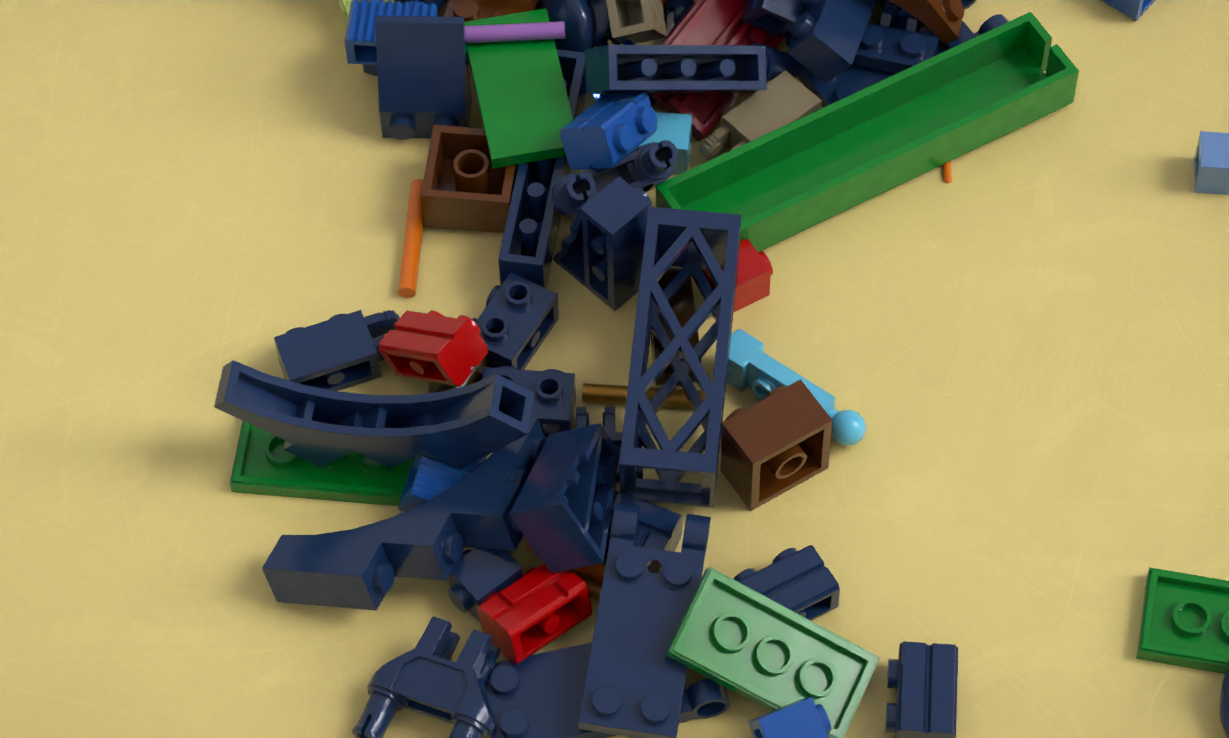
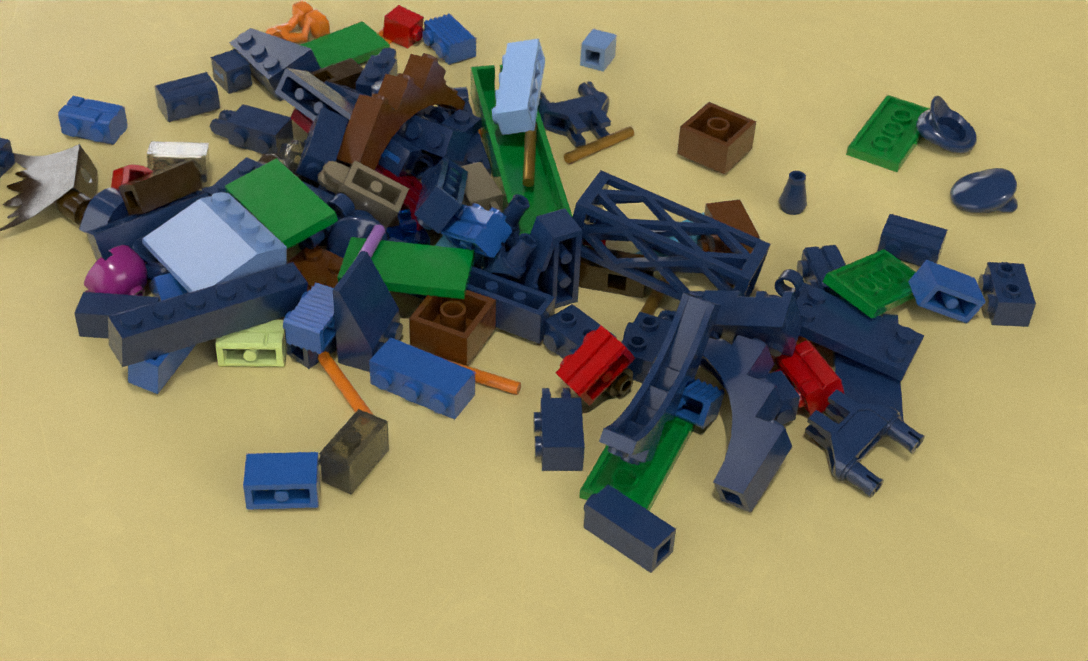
camera: 75 degrees left, 15 degrees down
(143, 107) = (282, 477): none -> blue brick
(192, 470) = (629, 528): none -> dark blue brick
(208, 157) = (354, 451): none -> clear smoke brick
(335, 119) = (342, 382): none -> orange bar
(369, 184) = (422, 378): none -> blue brick
(863, 151) = (529, 158): none -> pearl gold bar
(964, 513) = (794, 197): none -> dark blue cone
(982, 237) = (598, 145): none -> pearl gold bar
(989, 81) = (519, 87): none -> light blue brick
(1033, 188) = (577, 114): none -> dark blue connector
(1049, 374) = (716, 137): none -> reddish brown brick

